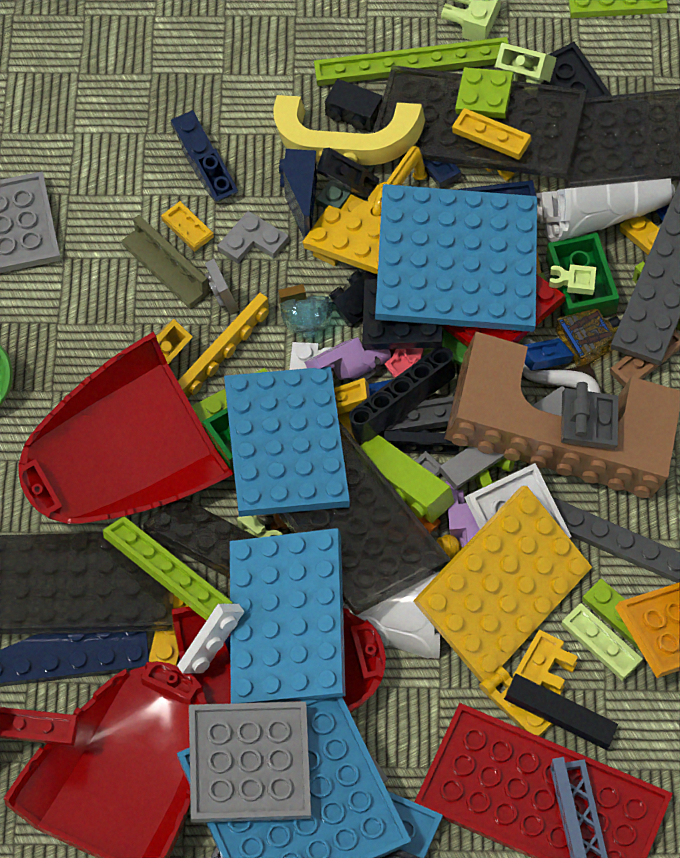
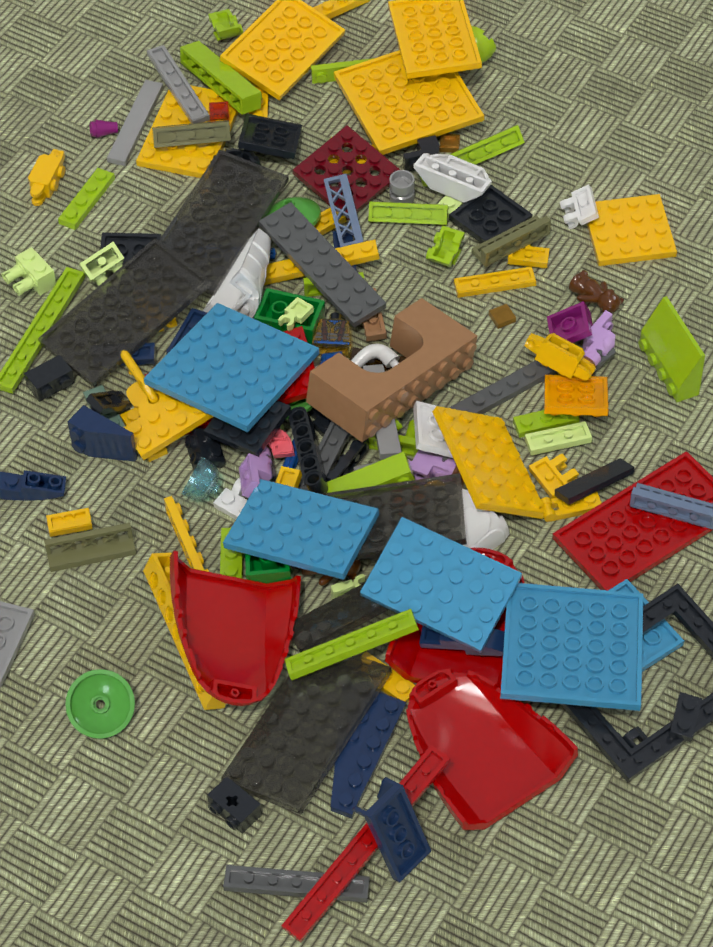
camera: 60 degrees left, 10 degrees down
(210, 638) = (426, 638): white plate -> none
(220, 287) = (143, 519): light grey plate -> none
(249, 762) = (535, 651): light grey plate -> none
(252, 232) = (105, 486): light grey plate -> none
(295, 292) = (177, 485): pearl gold tile -> none
(361, 148) = (100, 379): light yellow arch -> none
(485, 92) = (109, 294): lime plate -> none
(491, 133) = (147, 304): yellow plate -> none
(589, 418) = (414, 346): dark grey plate -> none

